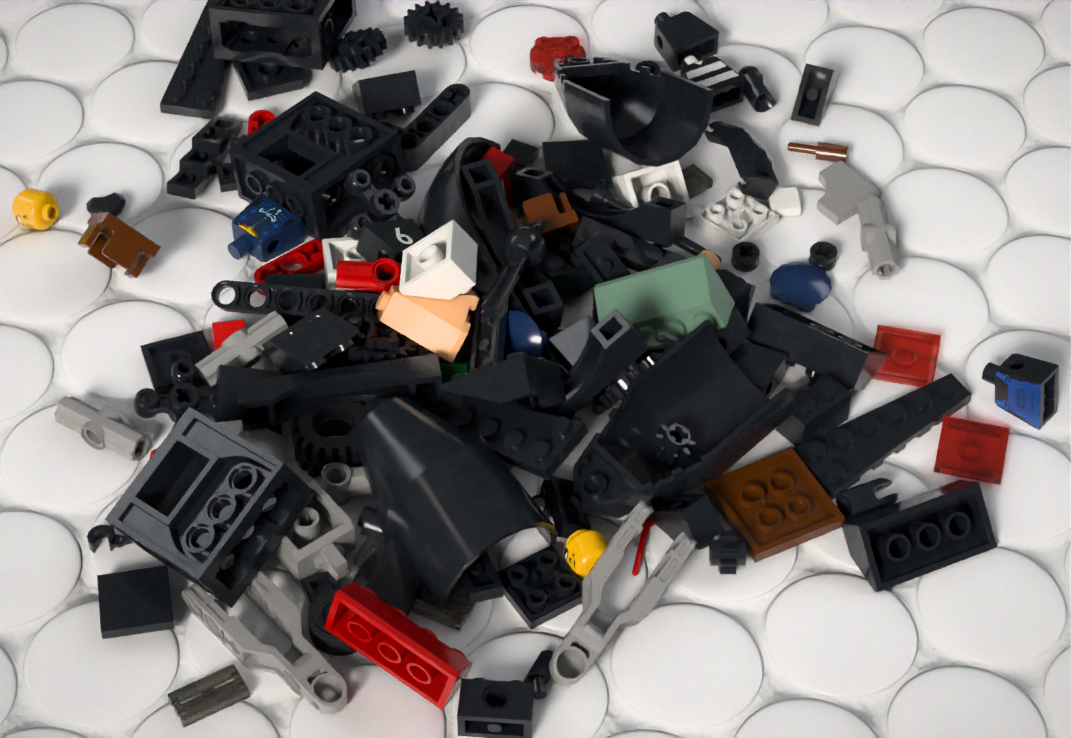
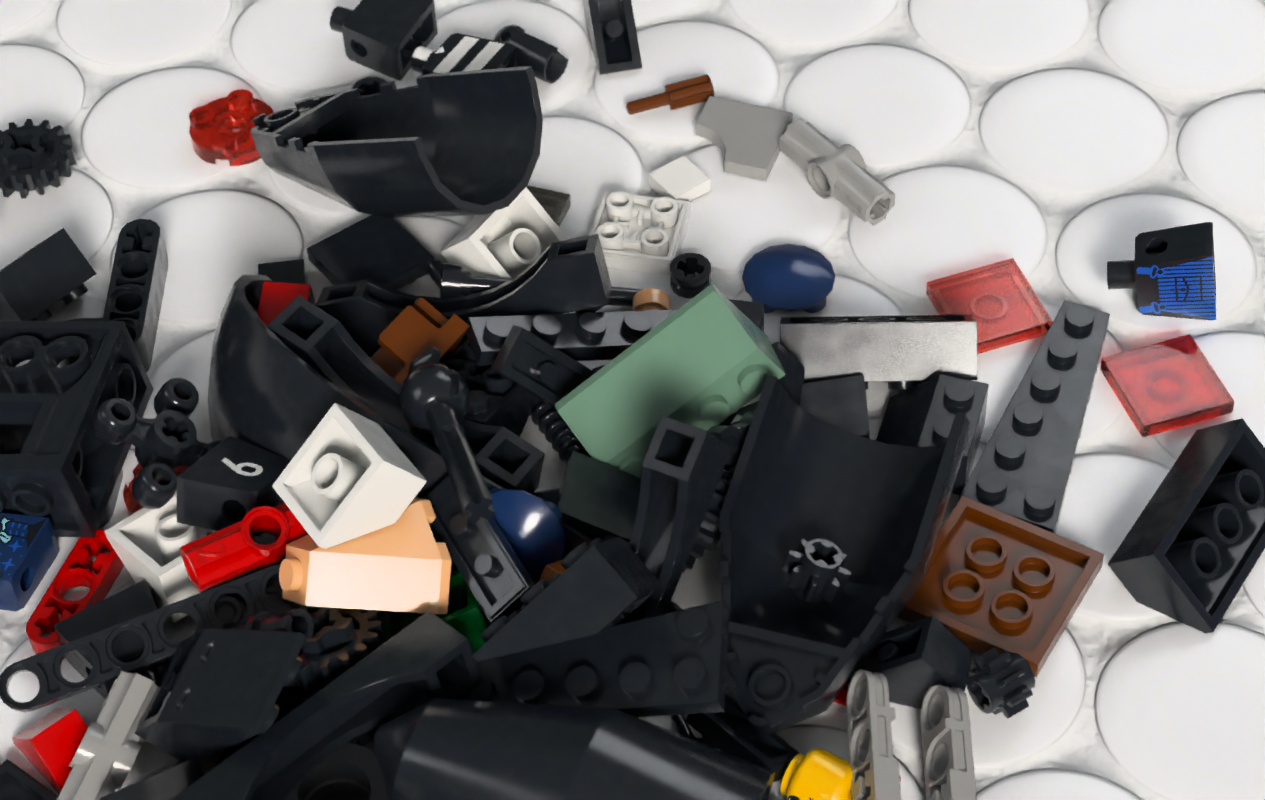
camera: 30 degrees left, 0 degrees up
(748, 157) = (604, 150): black piece -> none
(823, 249) = (786, 218): black bush -> none
(862, 500) = (1100, 519): black piece -> none

